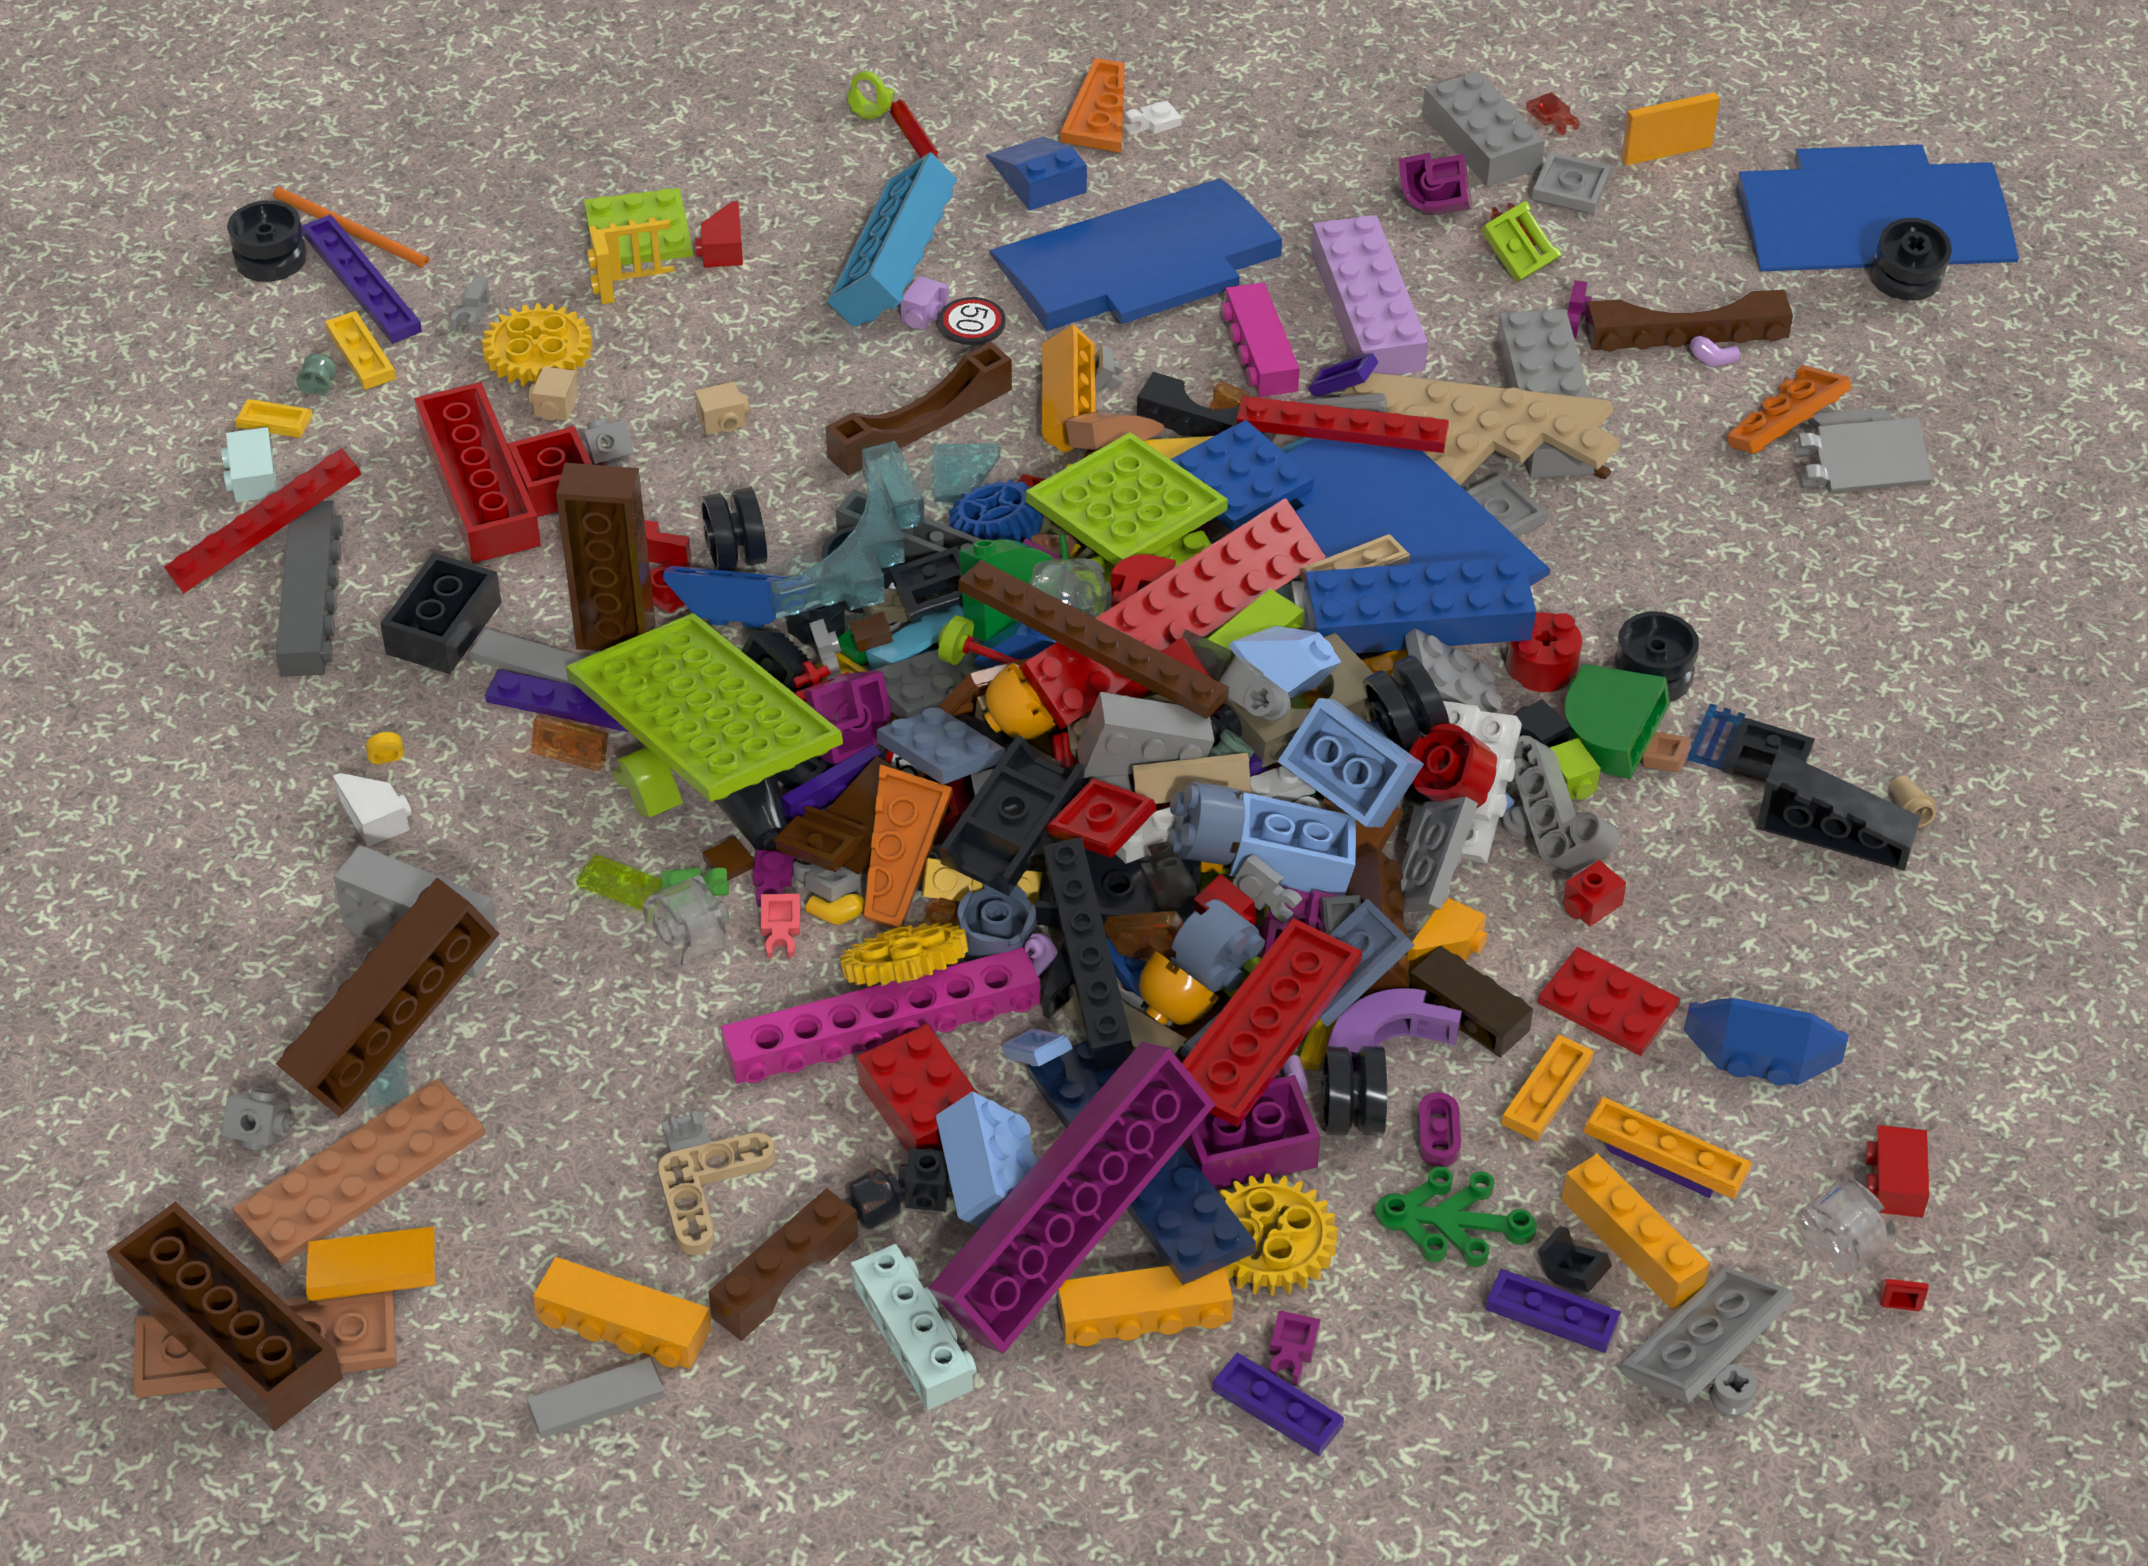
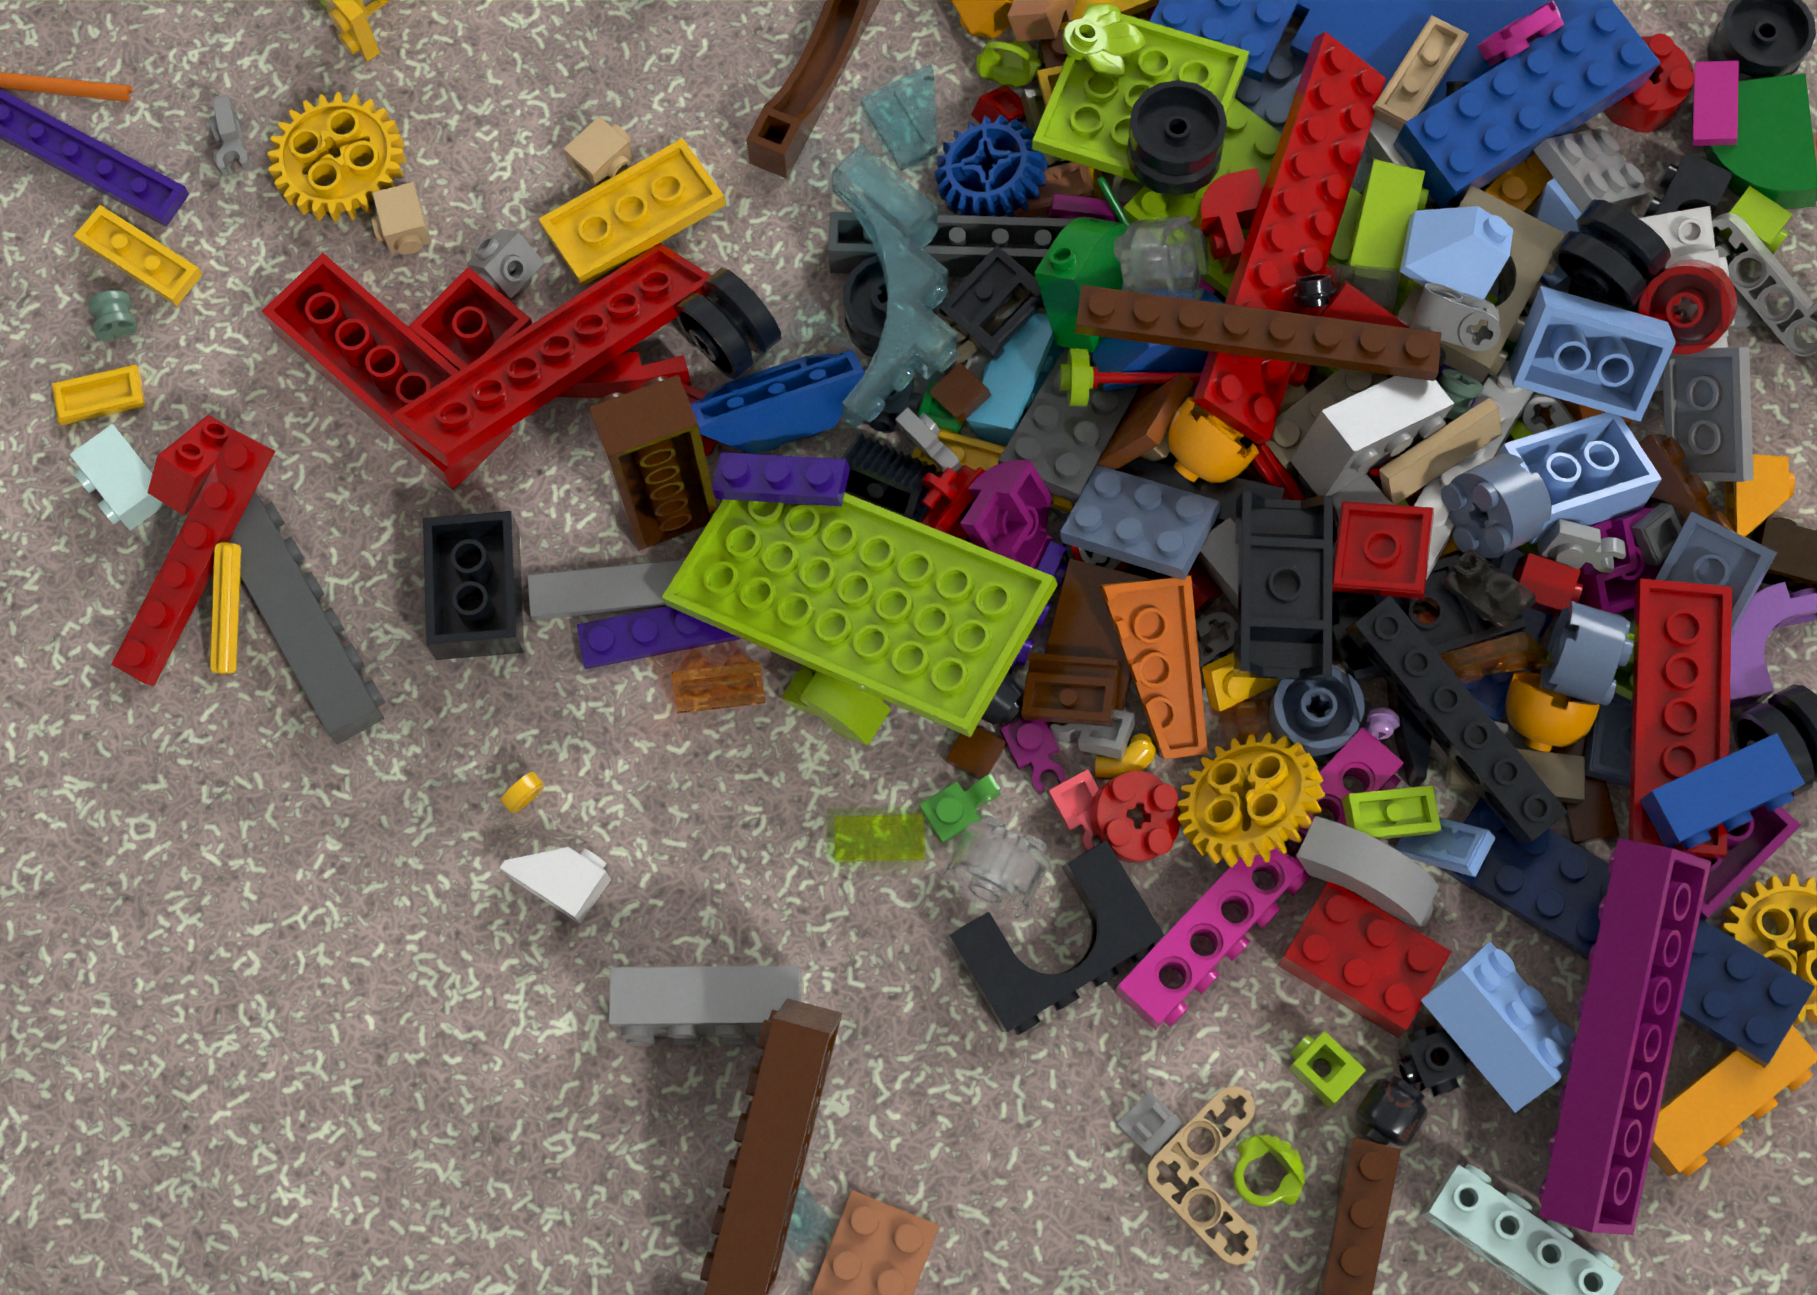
camera: 25 degrees left, 25 degrees up
(262, 559) = (225, 608): none -> yellow axle
(293, 458) = (187, 464): none -> red brick
(537, 492) = (549, 355): none -> red plate
(650, 1009) = (1119, 930): none -> black arch
(700, 626) = (781, 479): none -> dark purple plate
(719, 450) = (632, 212): none -> yellow plate
(761, 1214) = (1291, 1183): none -> lime piece
(818, 919) = (1160, 813): none -> red plate
(842, 1151) = (1342, 1067): none -> lime brick
(963, 1026) = (1370, 869): none -> light grey arch
(1003, 1002) = (1393, 812): none -> lime plate
(1047, 463) = (1011, 66): none -> lime piece
(1120, 449) = (1102, 39): none -> lime plate
(1123, 513) = (1176, 137): none -> black wheel
(1159, 637) = (1314, 290): none -> black plate
(1255, 1064) = (1723, 793): none -> blue brick
(1440, 549) = (1519, 33): none -> dark pink plate
(1583, 674) = (1715, 103): none -> dark pink tile

